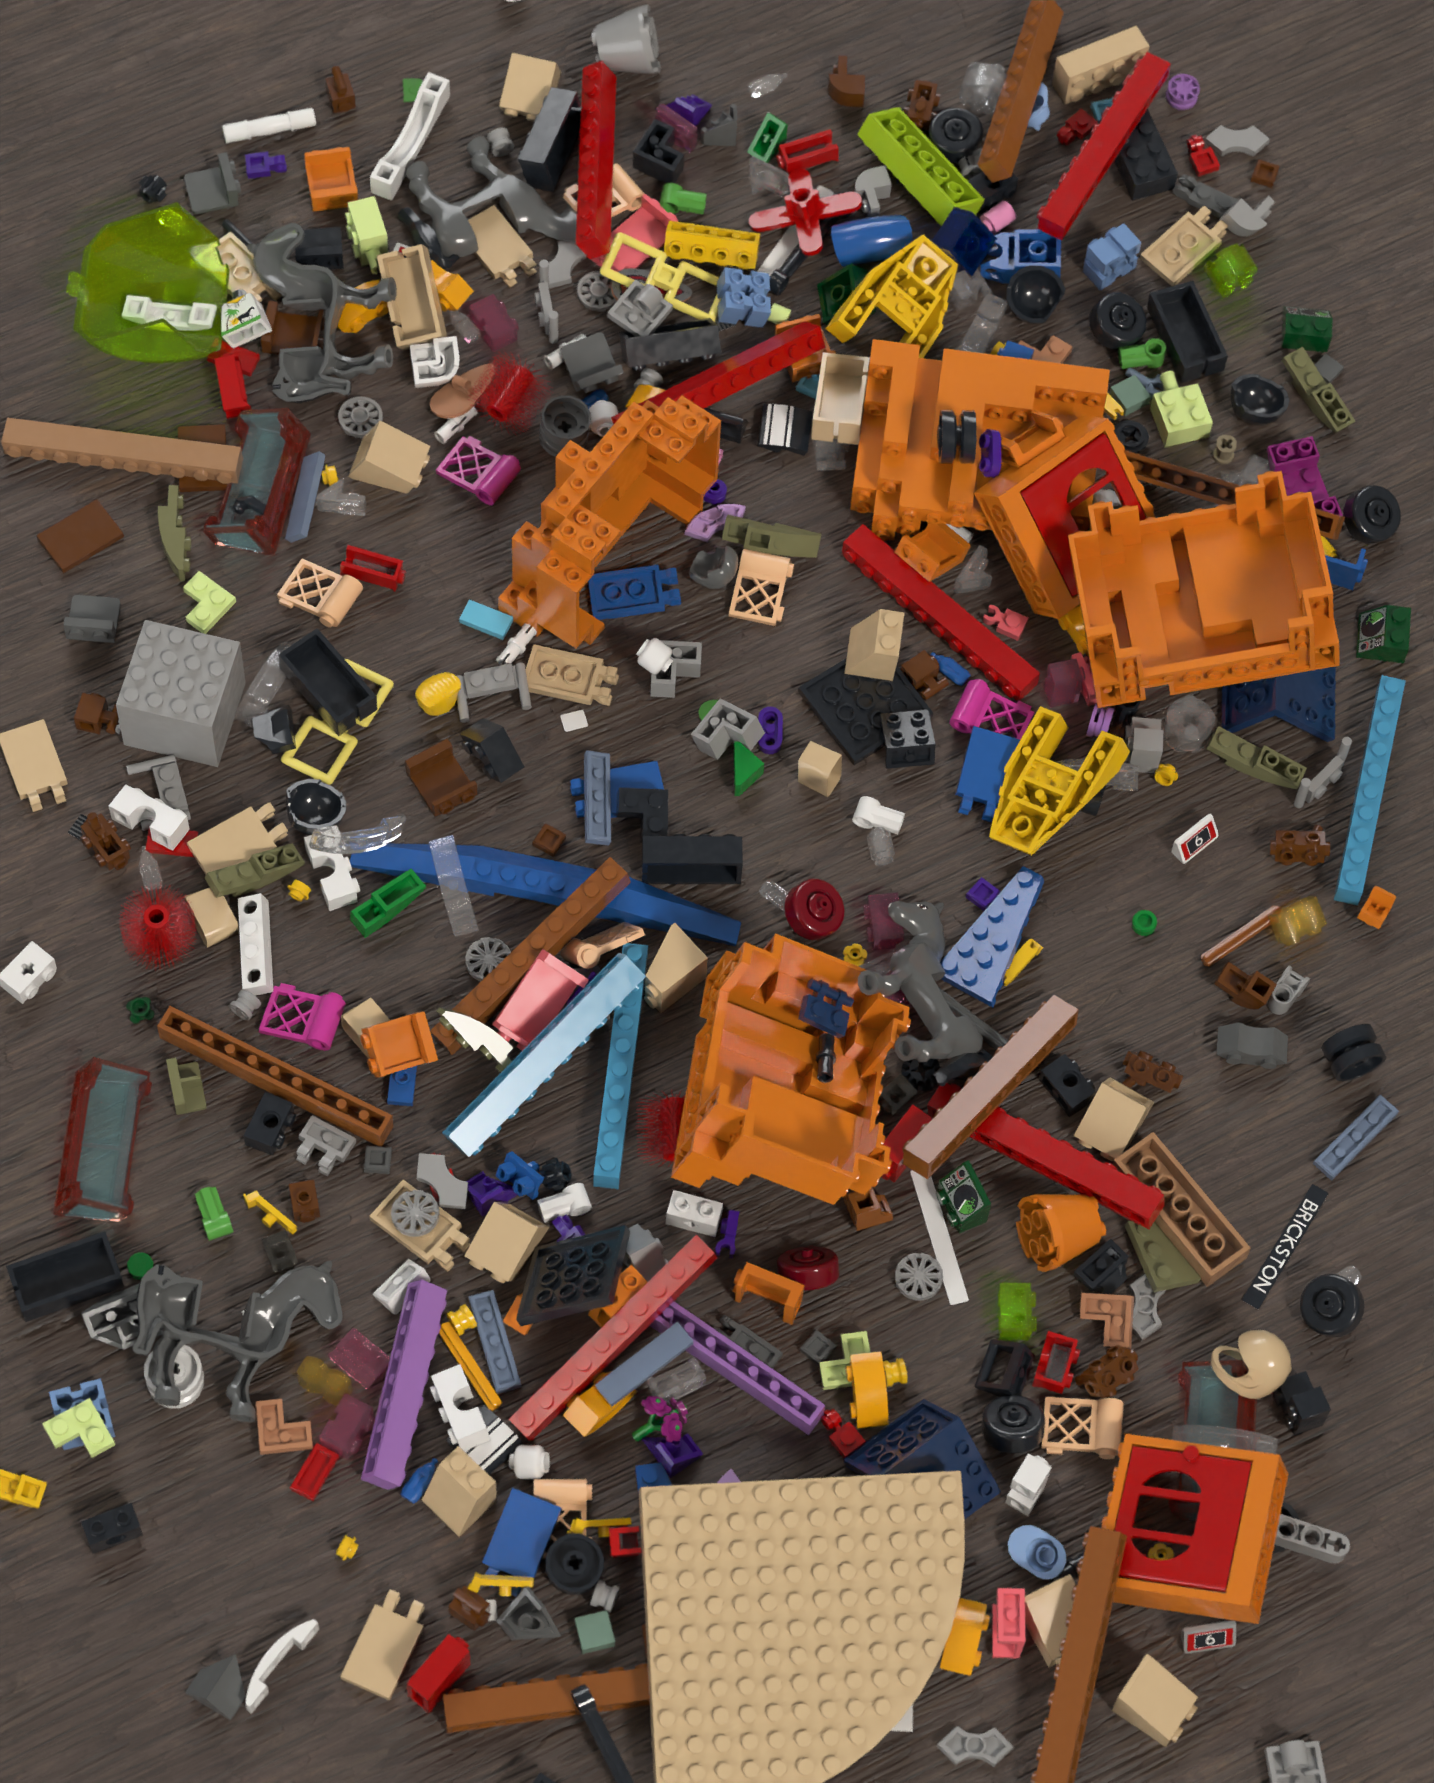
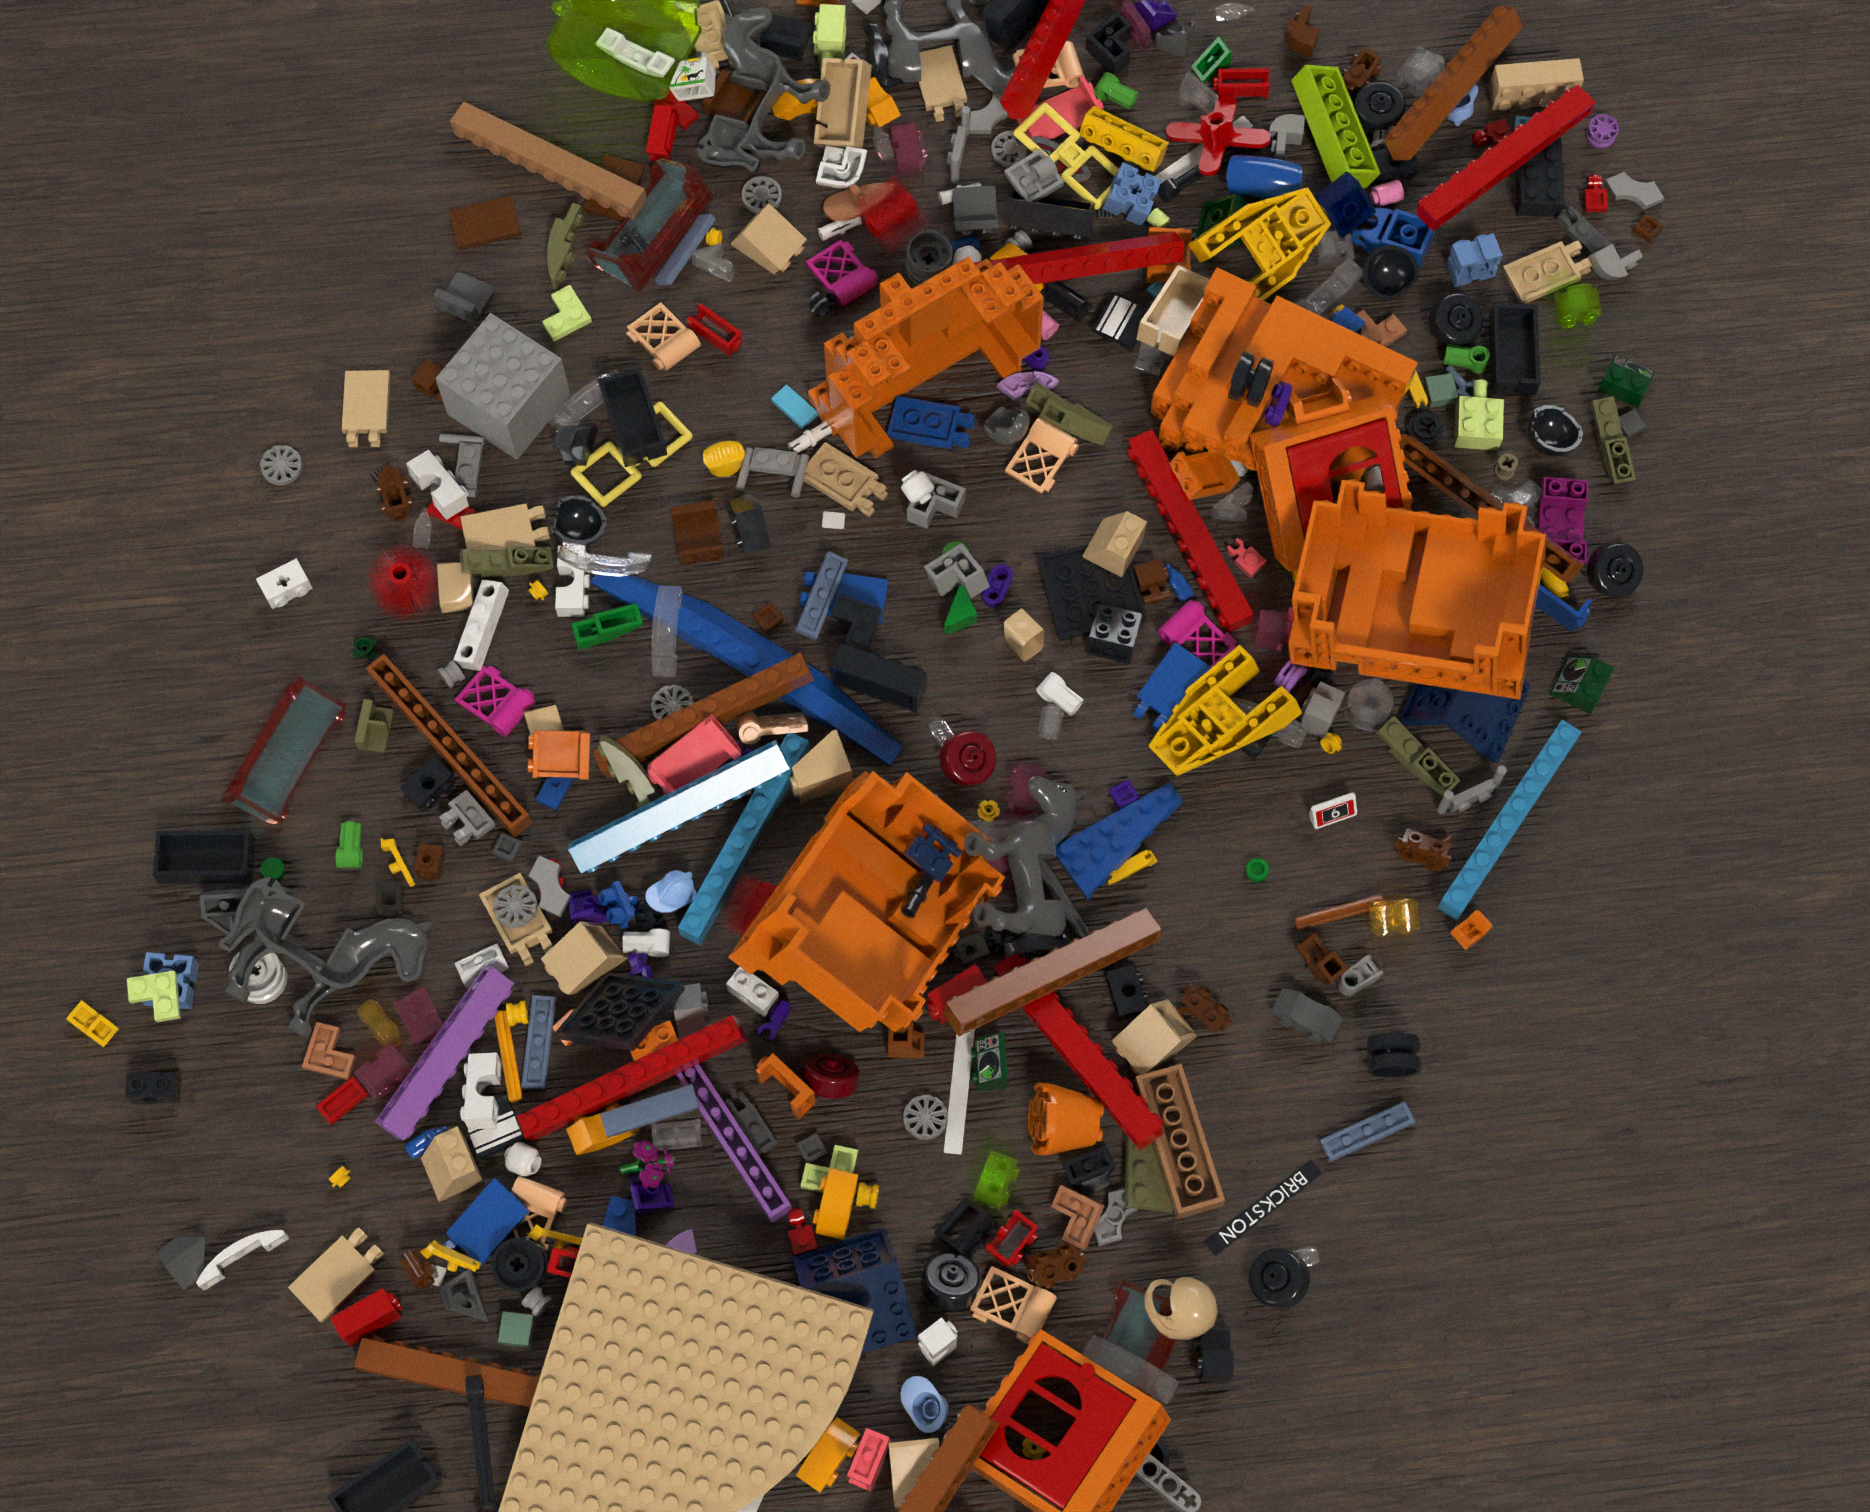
camera: 25 degrees right, 5 degrees up
(473, 507) = (823, 304): none -> black gear
(570, 1143) = (671, 892): none -> light blue piece

